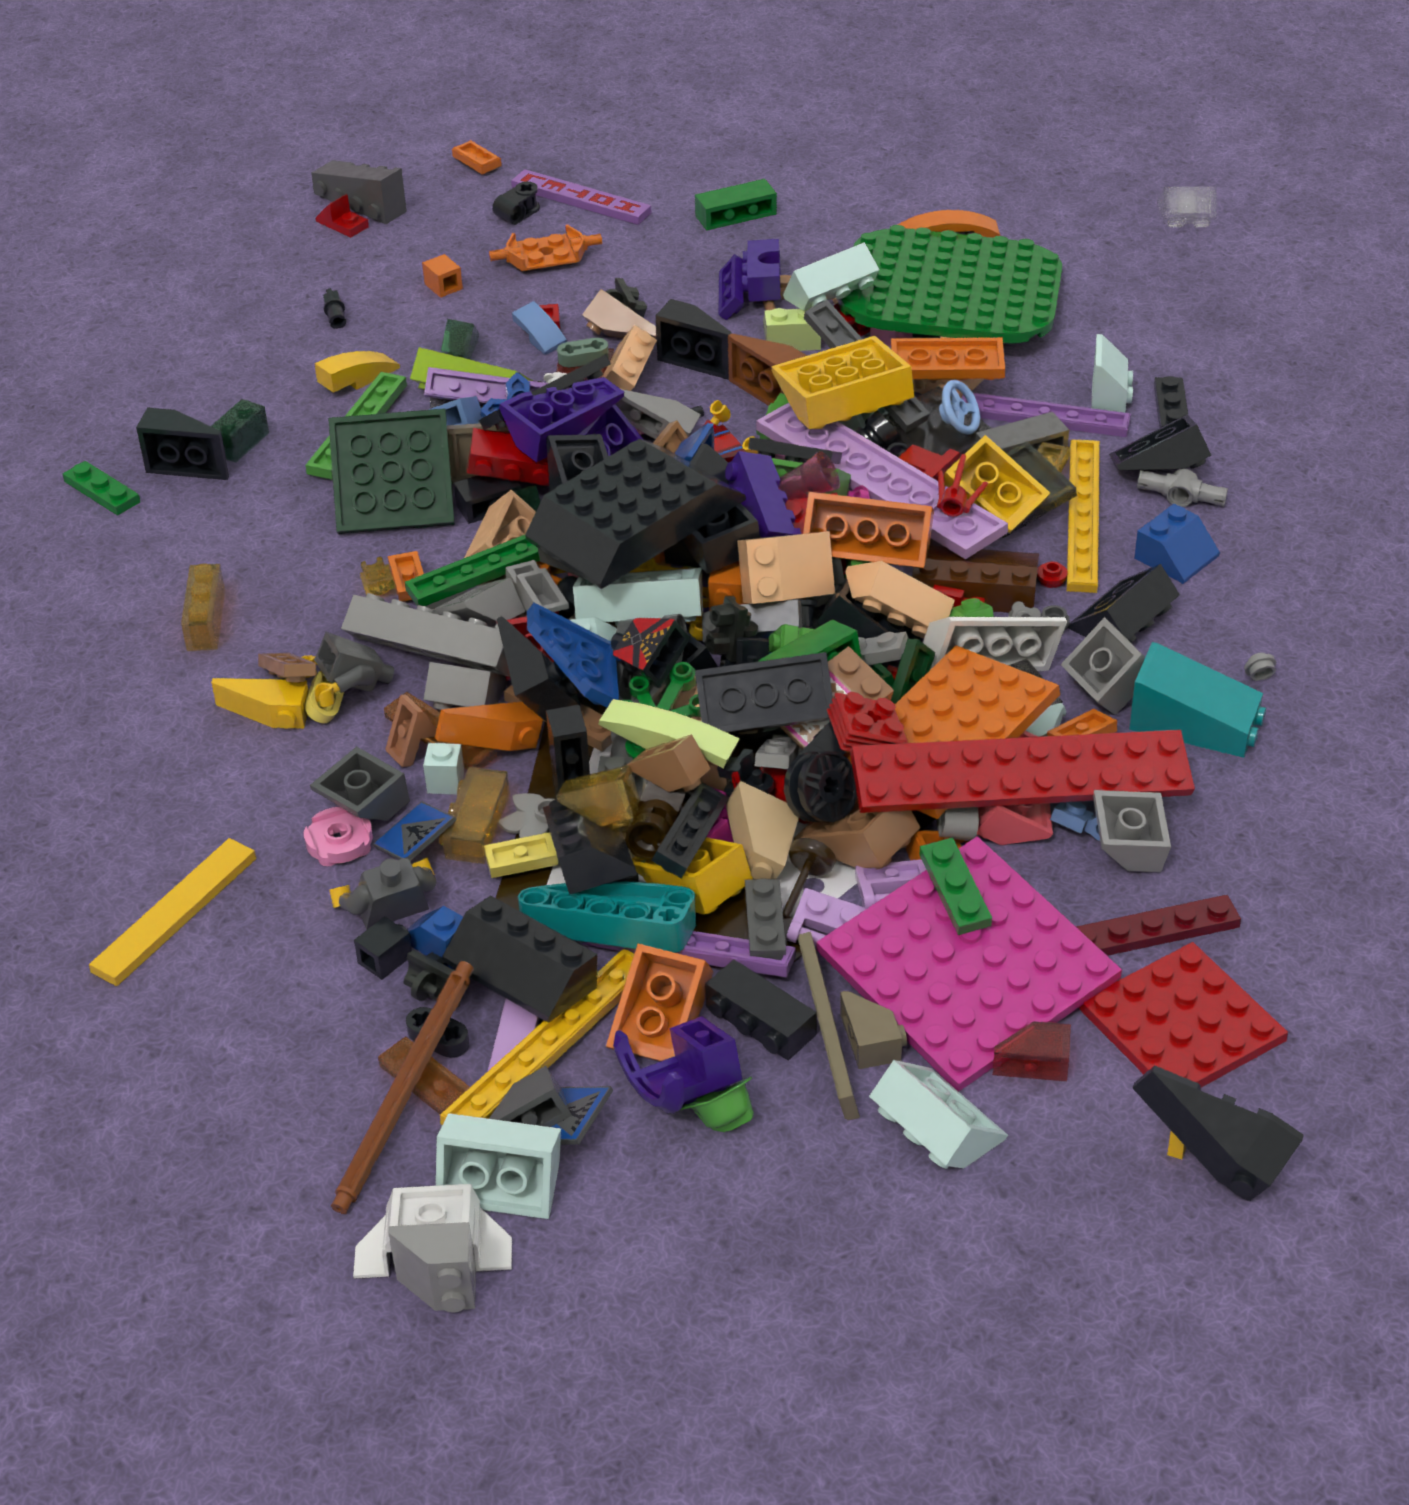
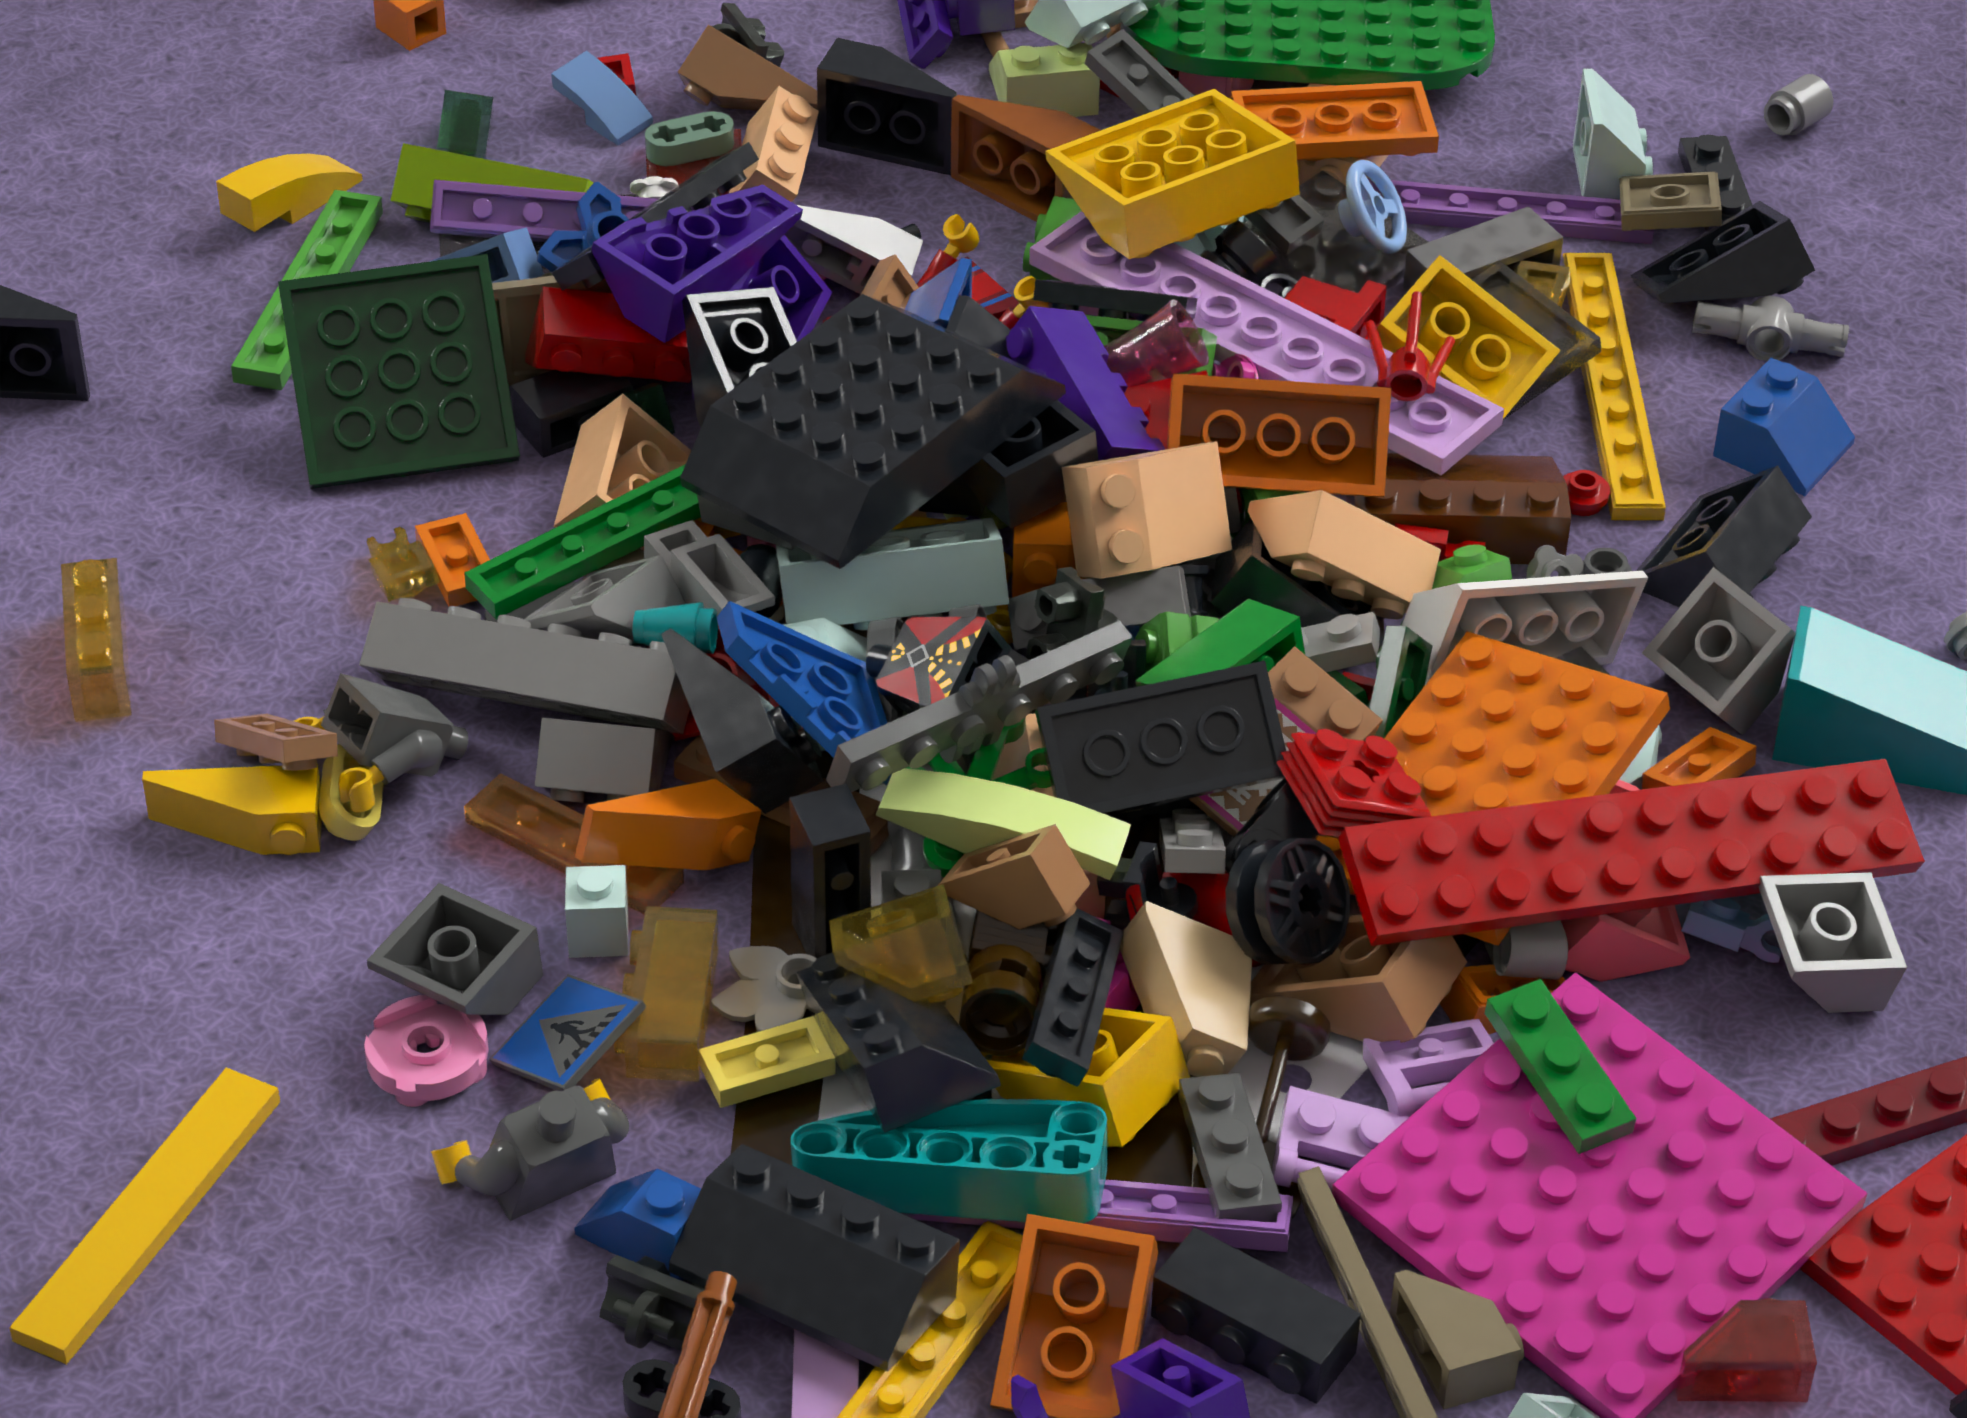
camera: 10 degrees left, 0 degrees up
(242, 428) = (107, 300): slope -> none
(334, 309) = (224, 79): black axle -> none
(383, 947) = (553, 1253): black brick -> none
(407, 729) = (519, 845): nougat slope -> none
(512, 613) = (690, 621): none -> teal cone
(662, 669) = (980, 709): none -> dark grey hinge
(1137, 412) = (1670, 201): none -> dark tan tile
(1228, 361) = (1798, 105): none -> light grey brick

